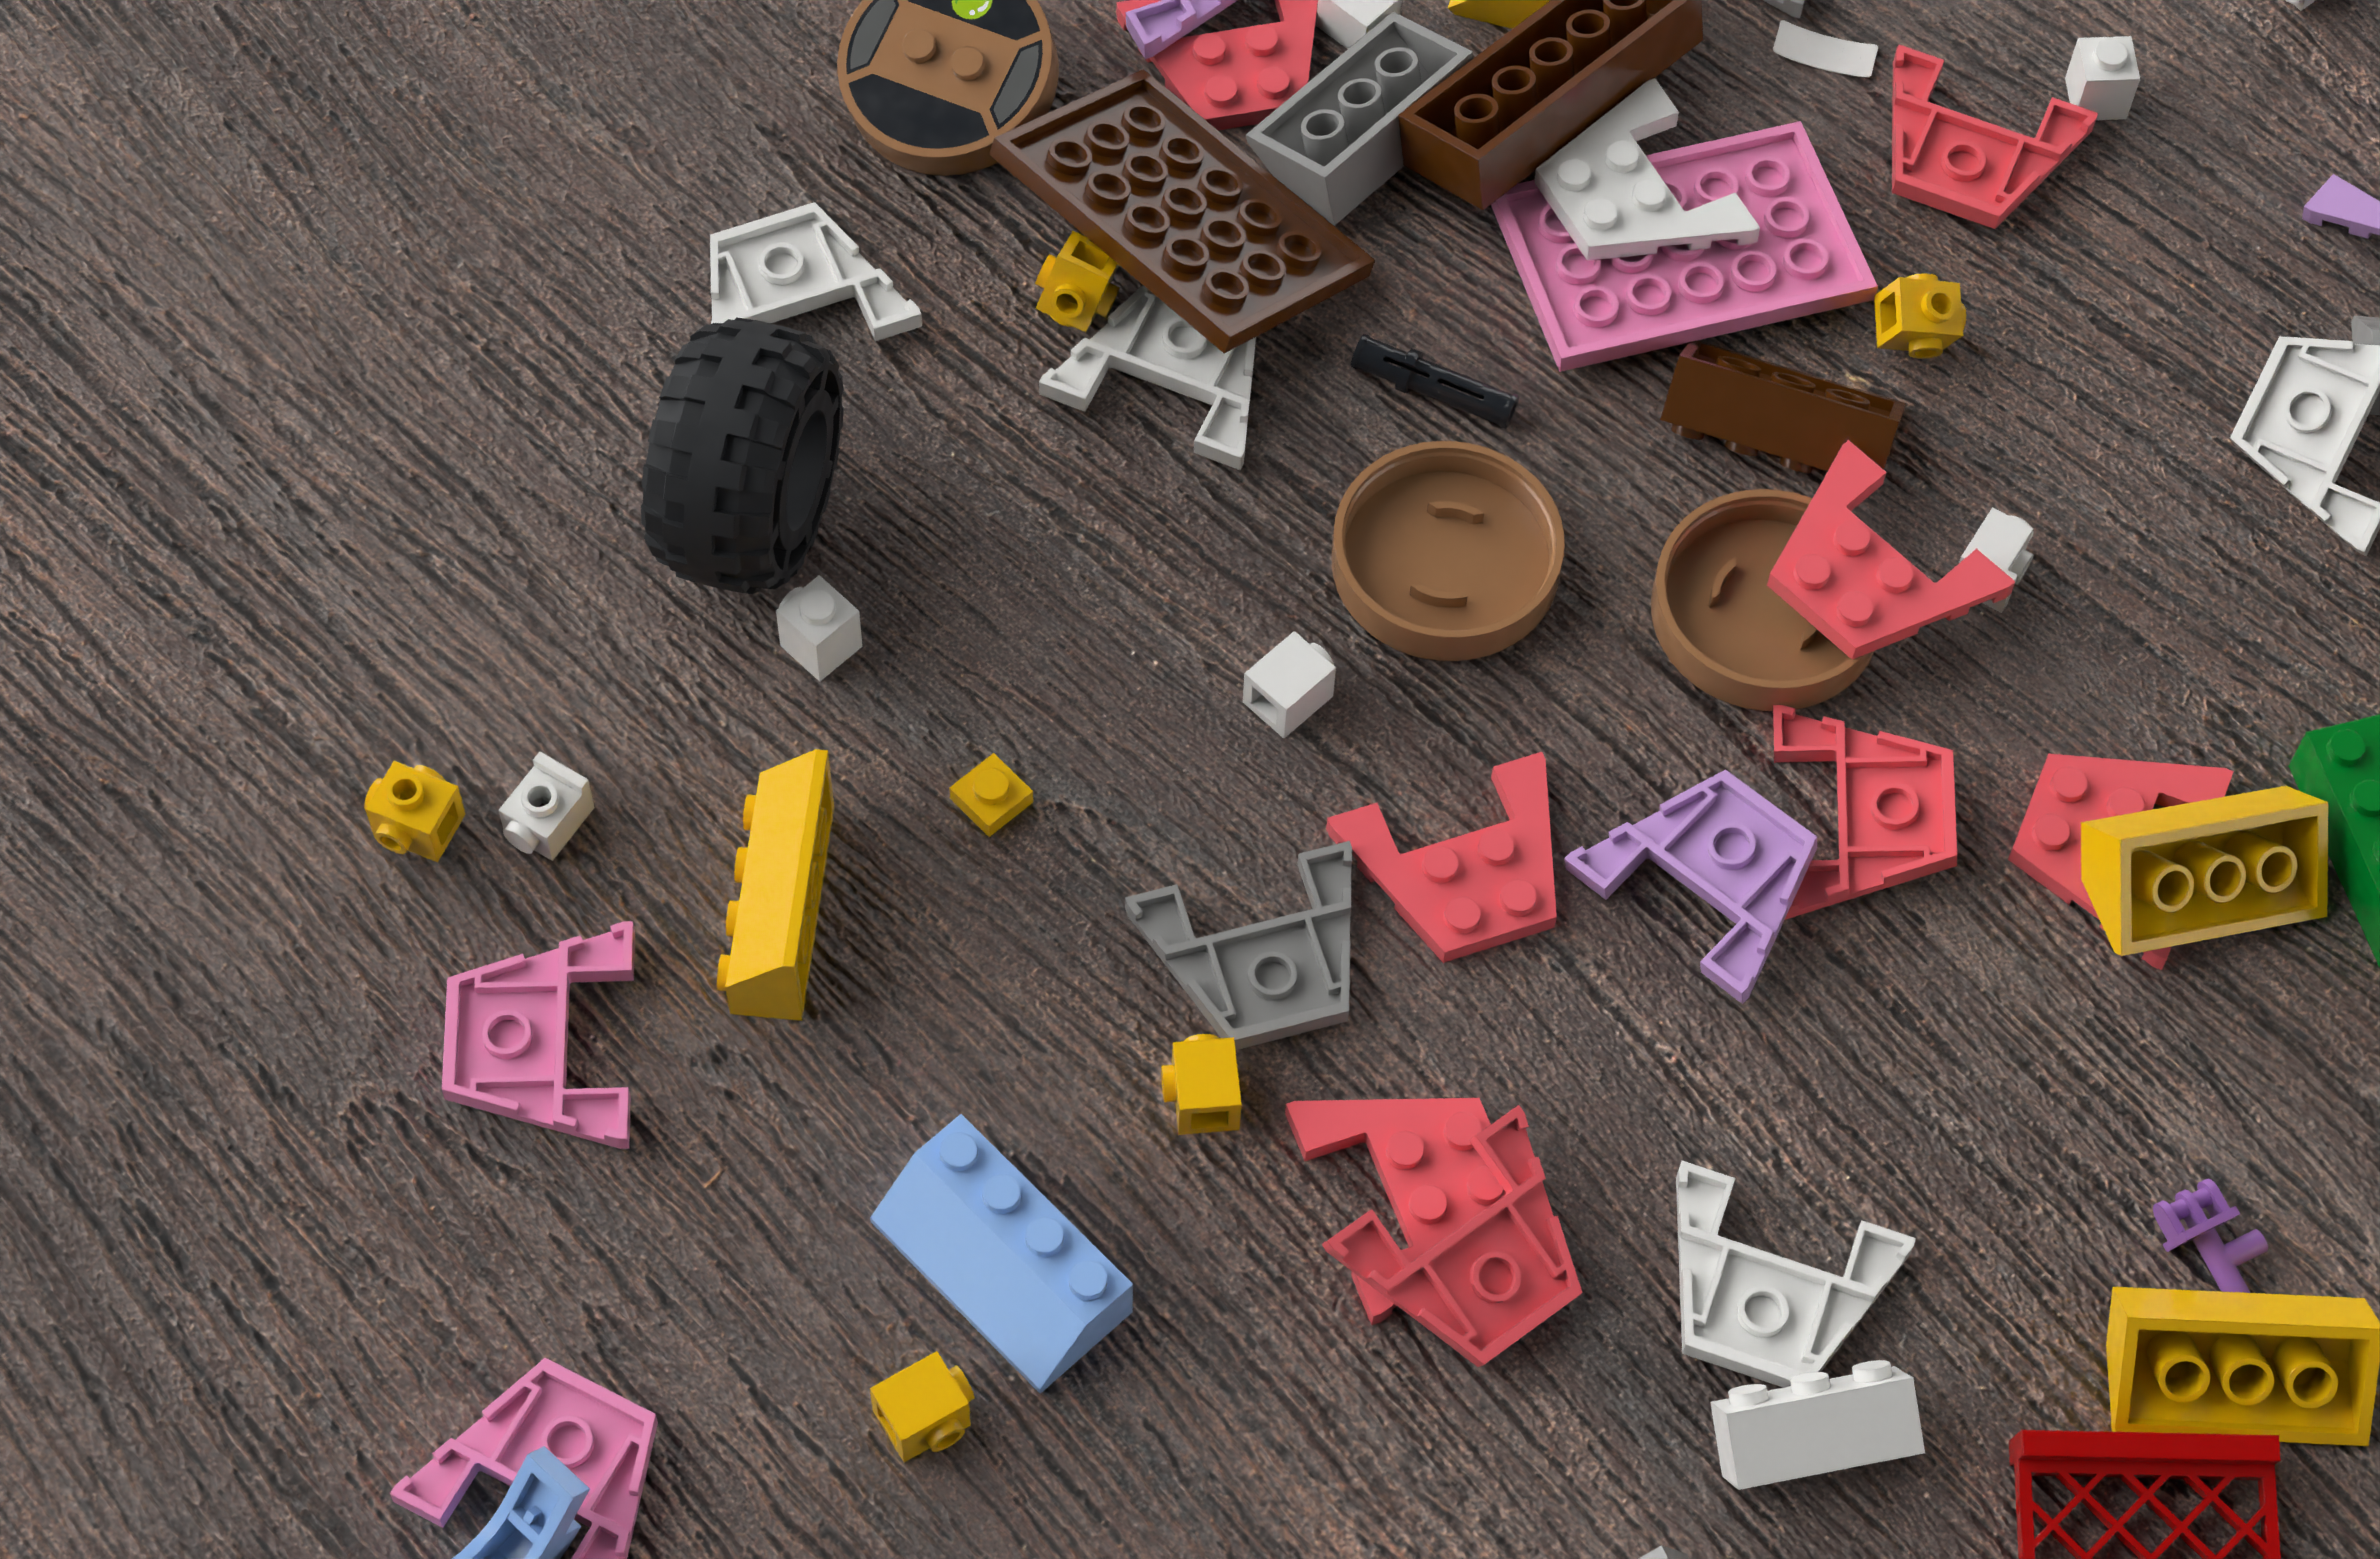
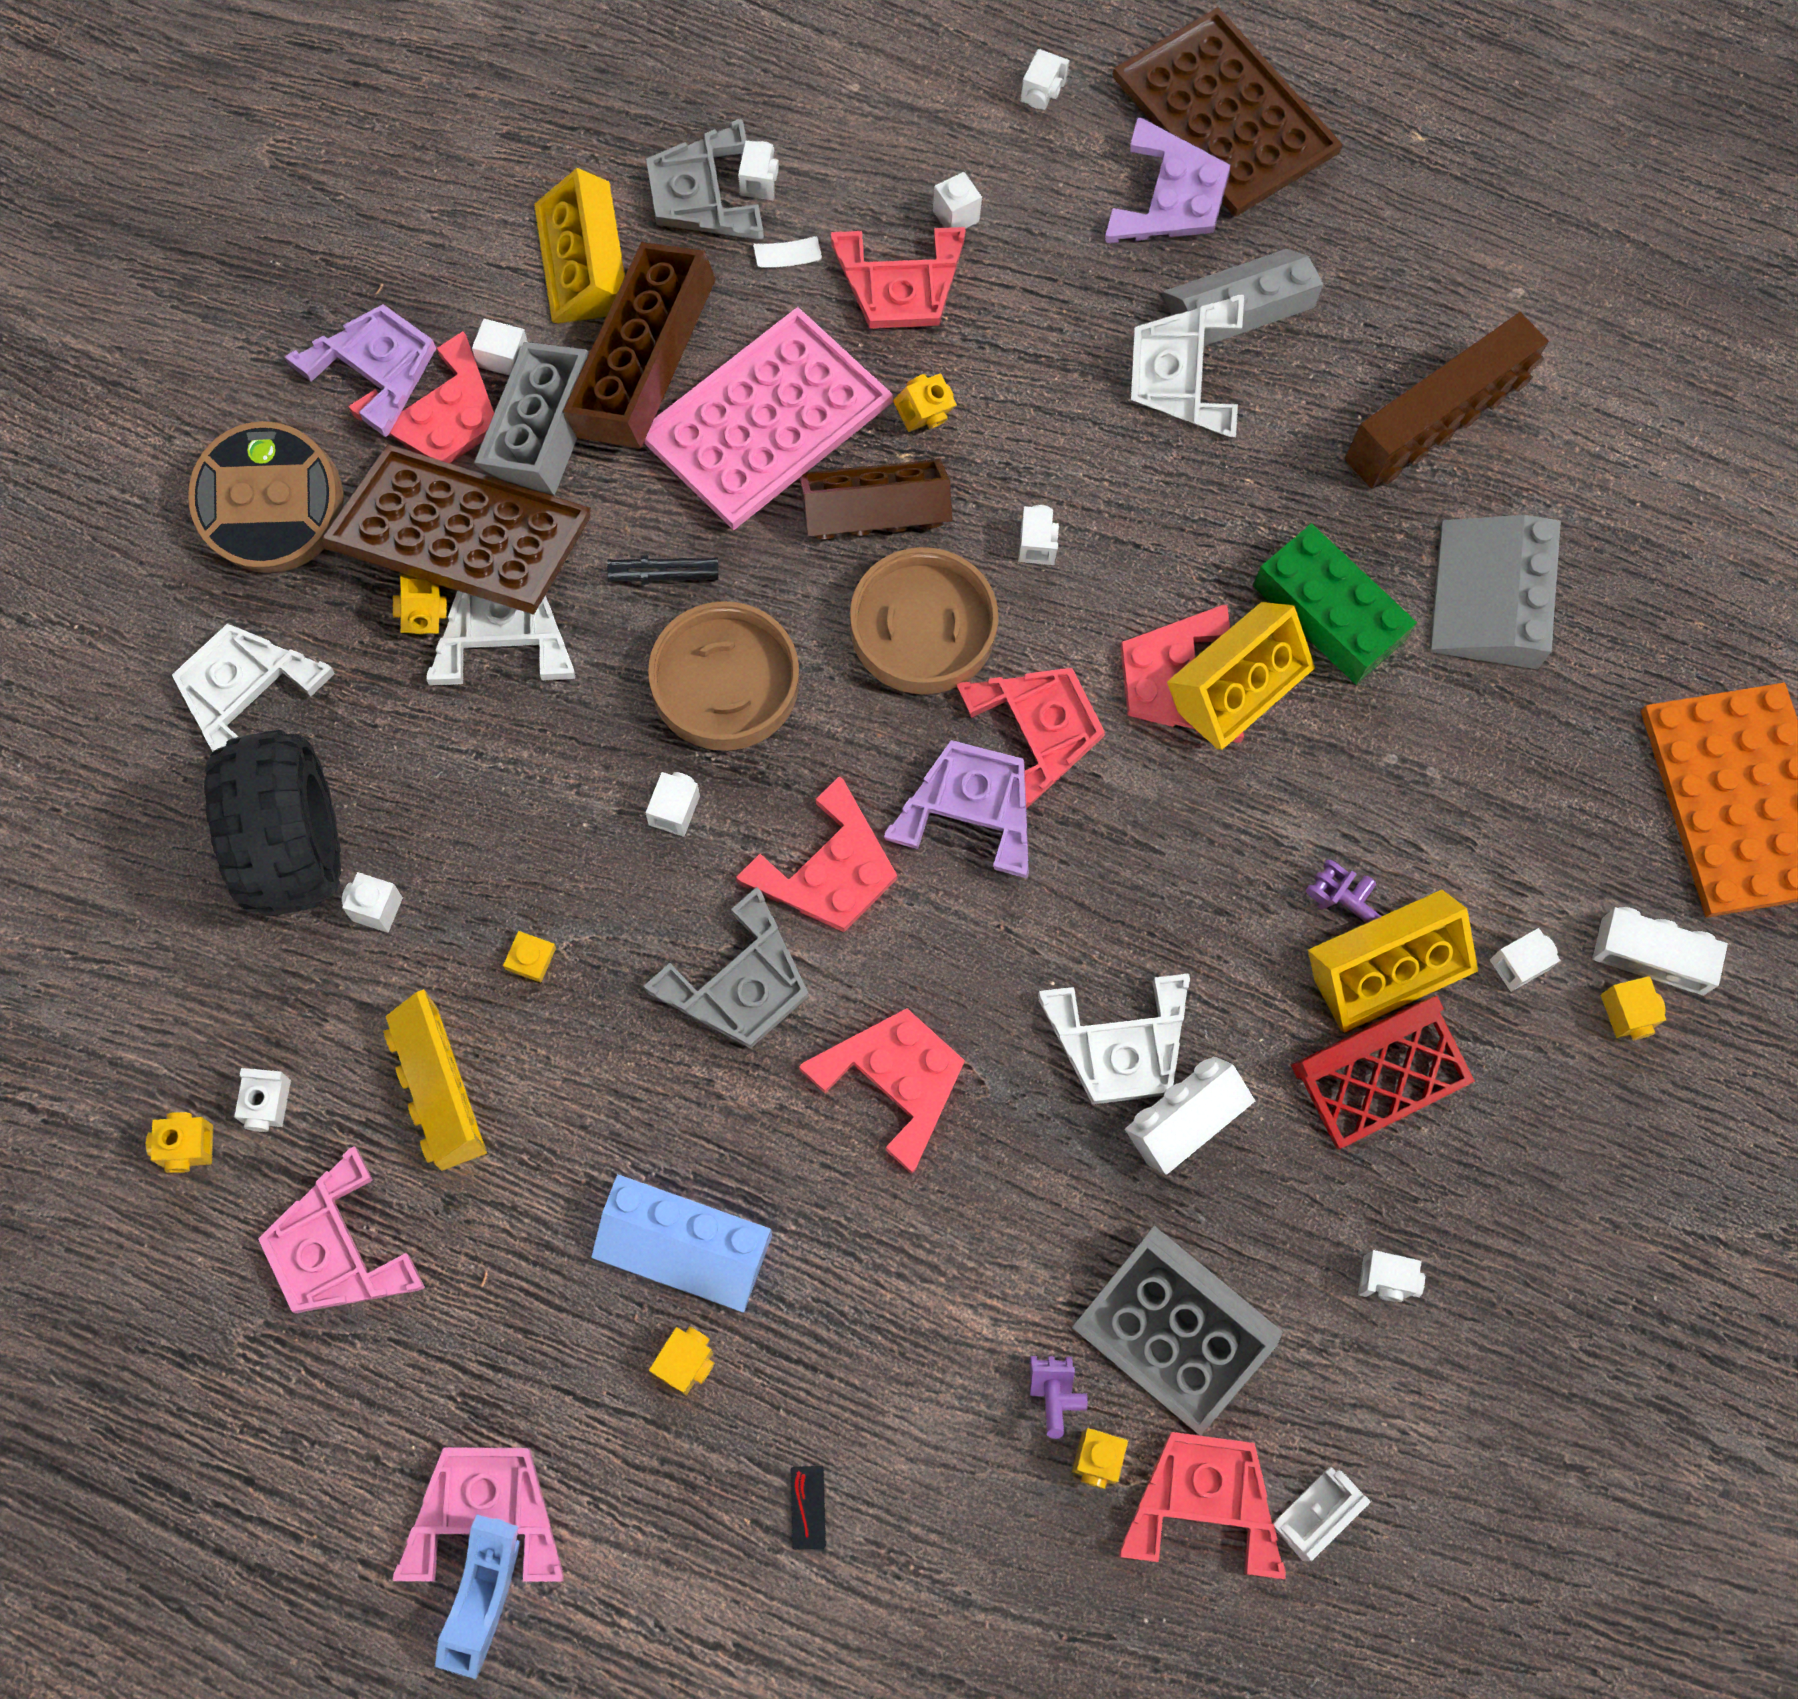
camera: 30 degrees left, 10 degrees up
(1203, 1084) = (746, 1078): yellow brick -> none
(1488, 1276) = (967, 1113): coral wing -> none
(1615, 197) = (713, 404): white wing -> none
(1856, 582) = (970, 589): coral wing -> none

